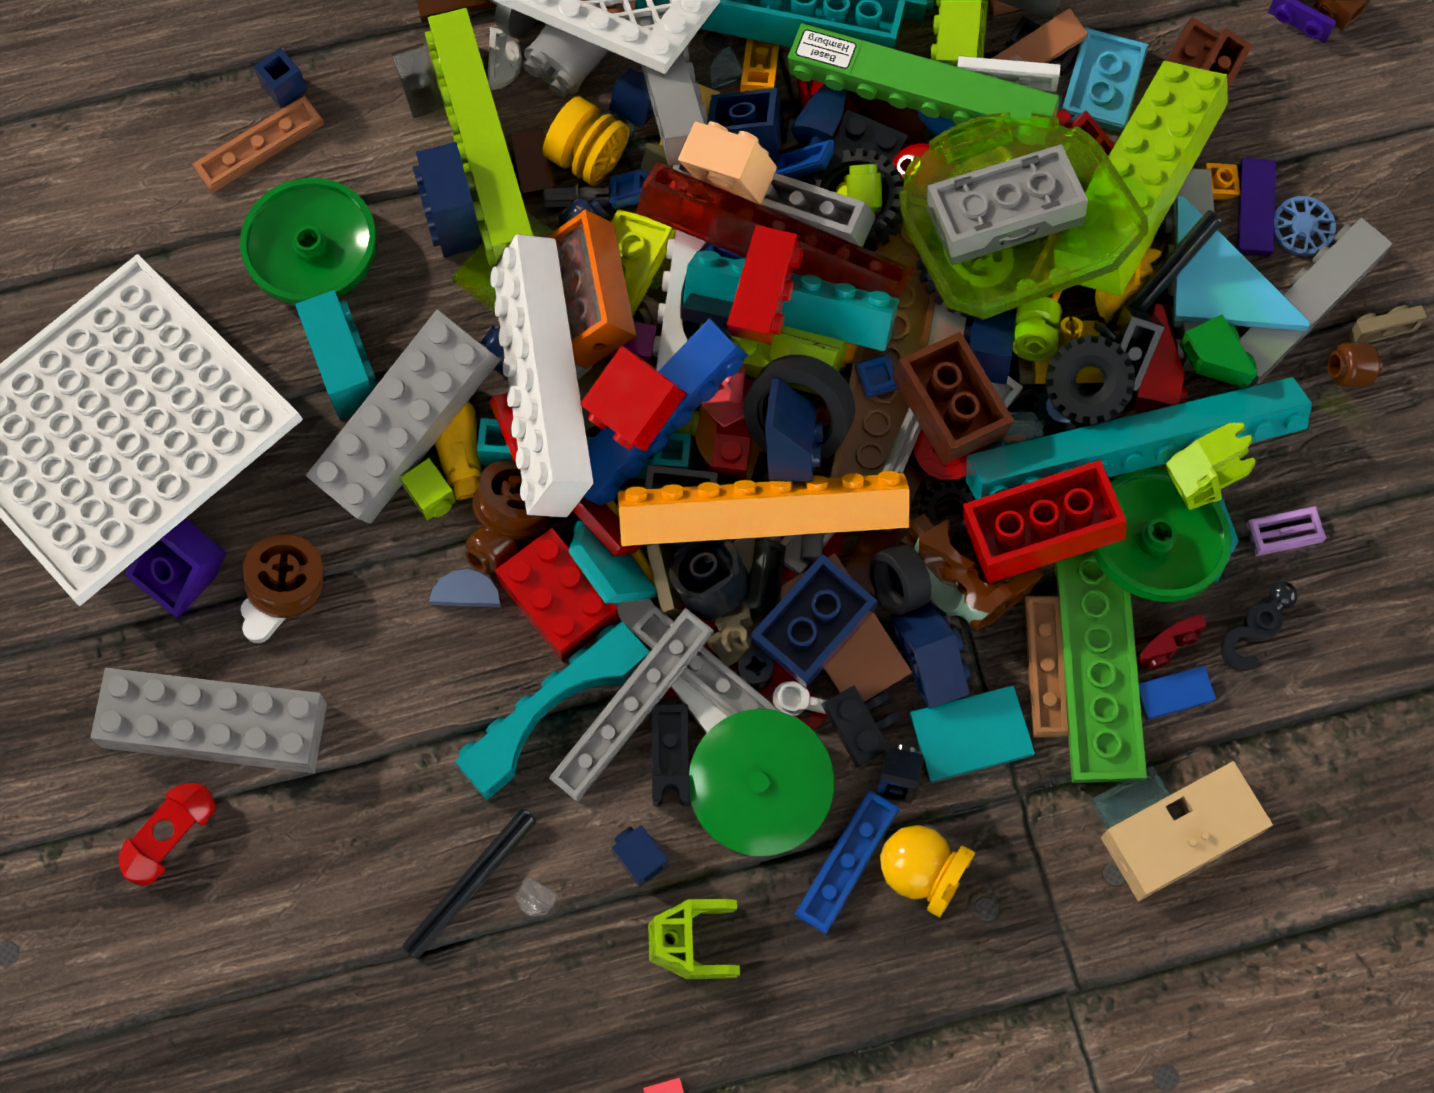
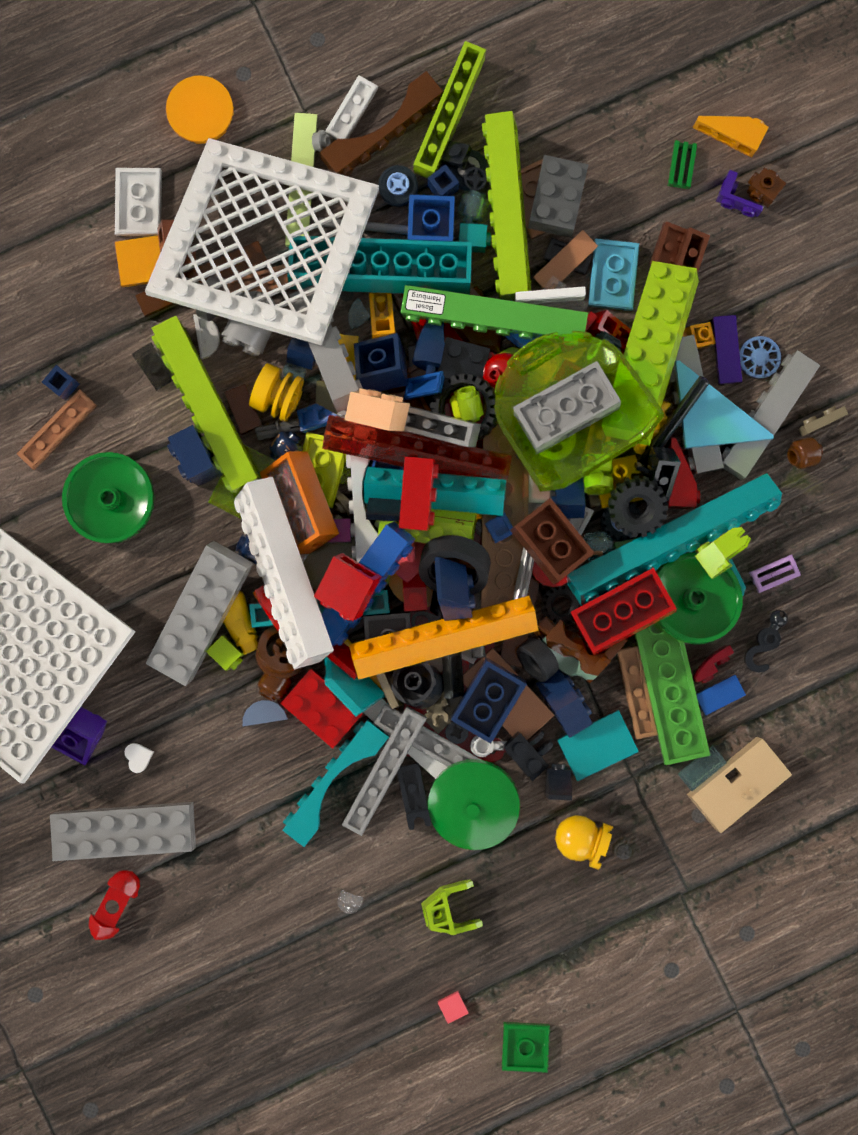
camera: 15 degrees left, 15 degrees up
(302, 580) = (164, 726): reddish brown wheel -> none
(337, 351) = (146, 575): teal brick -> none
(469, 884) = (307, 899): black axle -> none
(639, 855) = (407, 863): dark blue brick -> none
(847, 862) = (534, 841): blue tile -> none
(1217, 353) = (717, 469): green slope -> none

